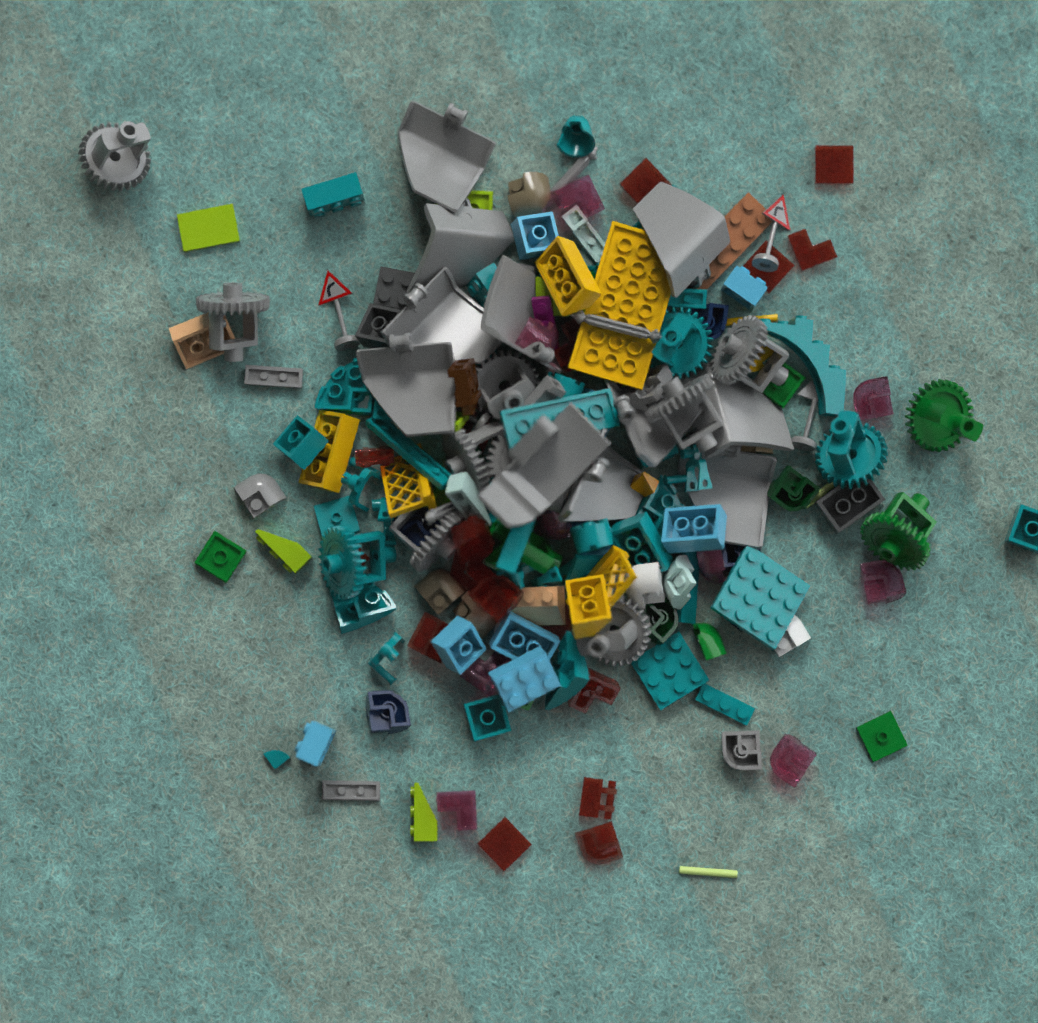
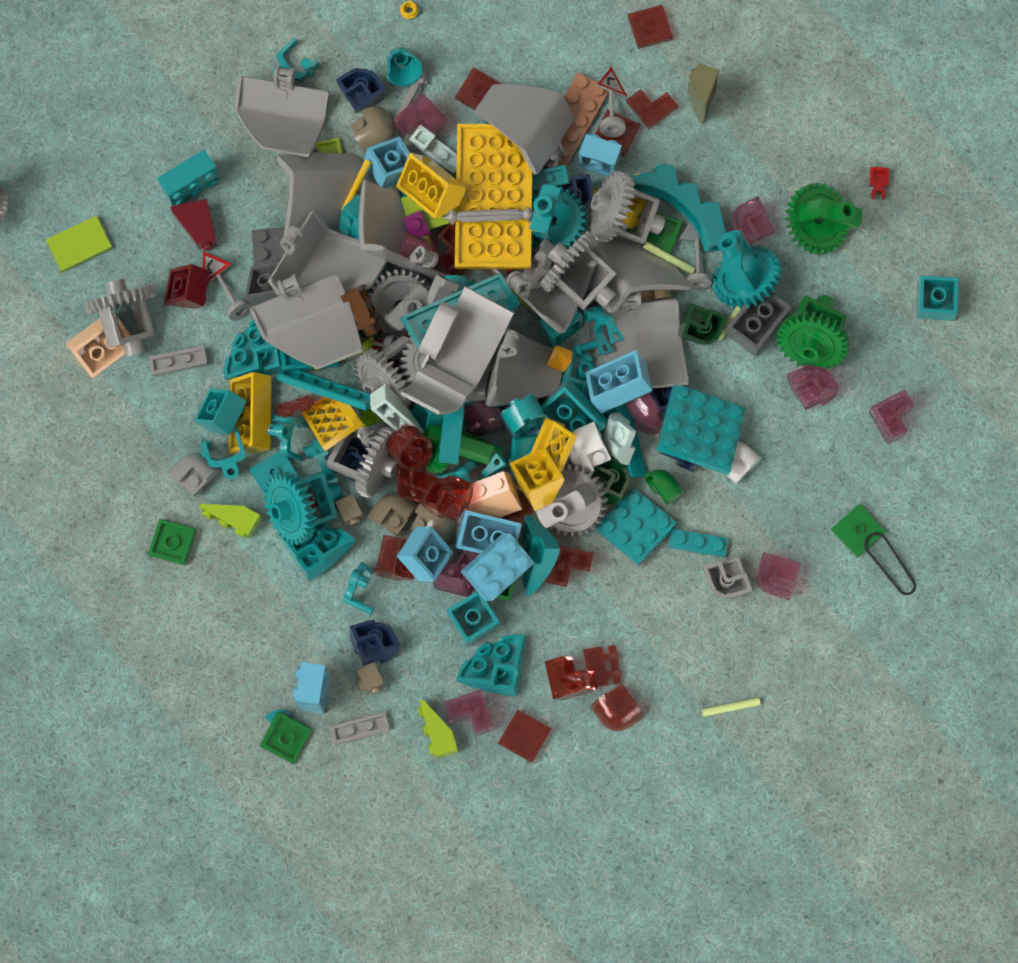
camera: 10 degrees left, 10 degrees down
(277, 779) = (285, 737): none -> green plate
(292, 495) = (224, 463): none -> teal piece
(302, 304) = (187, 287): none -> dark red slope
(330, 241) = (197, 223): none -> dark red slope
(373, 747) = (370, 679): none -> dark tan brick
(399, 576) = (349, 510): none -> dark tan brick
(481, 110) = (306, 63): none -> teal piece
(496, 249) = (358, 181): none -> yellow bar
(496, 768) = (495, 666): none -> teal brick
(529, 148) = (361, 88): none -> dark blue brick
(557, 803) = (565, 681): none -> clear red brick
(604, 73) = (406, 5): none -> yellow plate
(781, 411) = (668, 257): none -> yellowish green bar
(864, 250) = (702, 89): none -> olive slope
(911, 773) = (884, 571): none -> black piece
(944, 633) = (888, 413): none -> clear pink brick
(1012, 390) = (878, 179): none -> red plate

